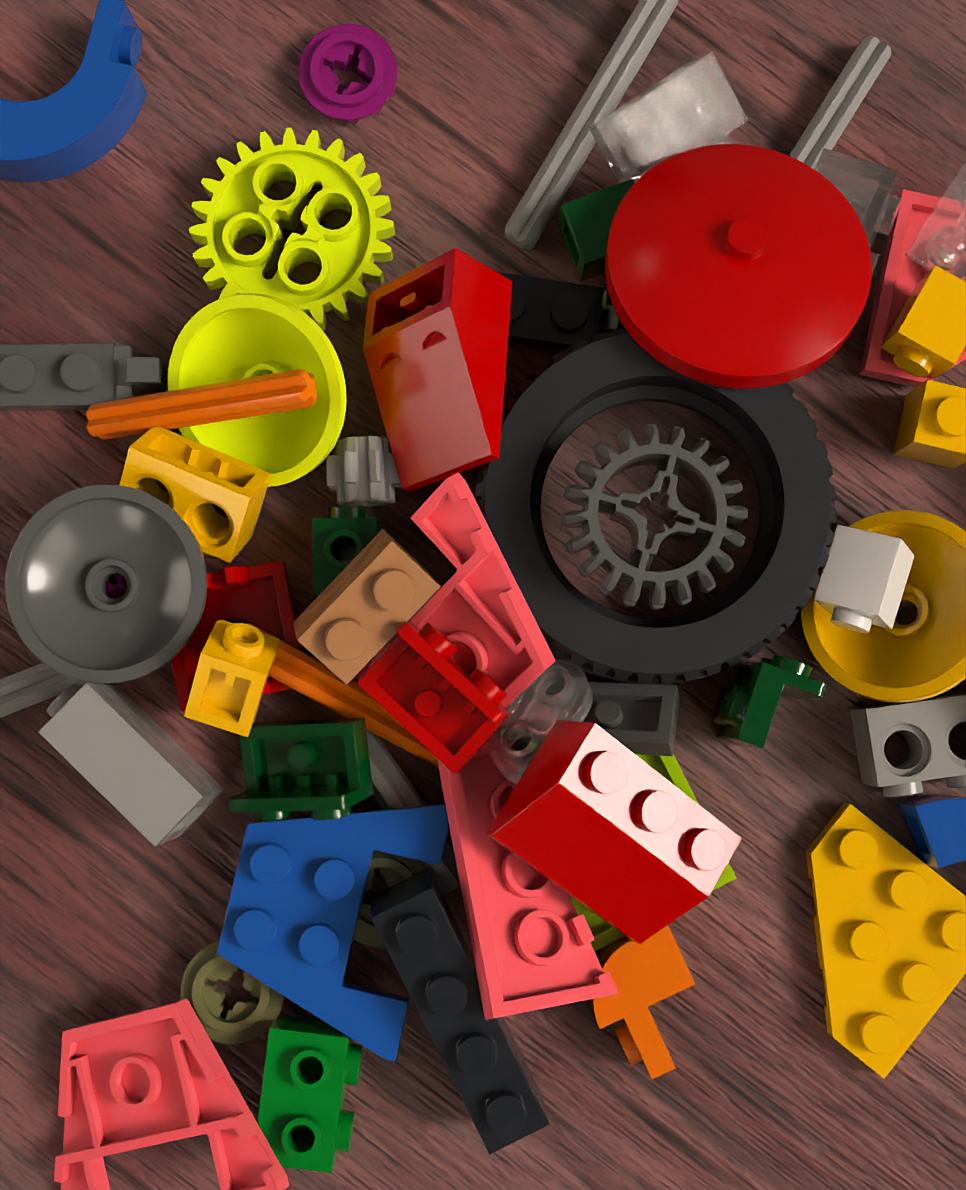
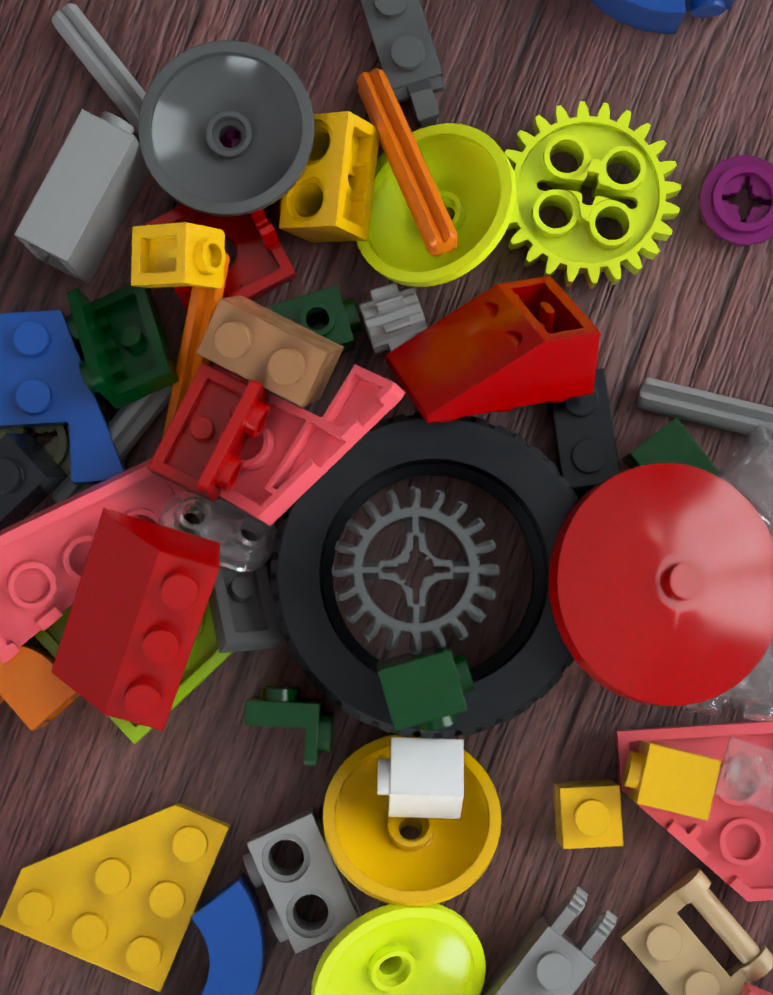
camera: 75 degrees right, 0 degrees up
(782, 543) = (425, 688): none -> dark green brick

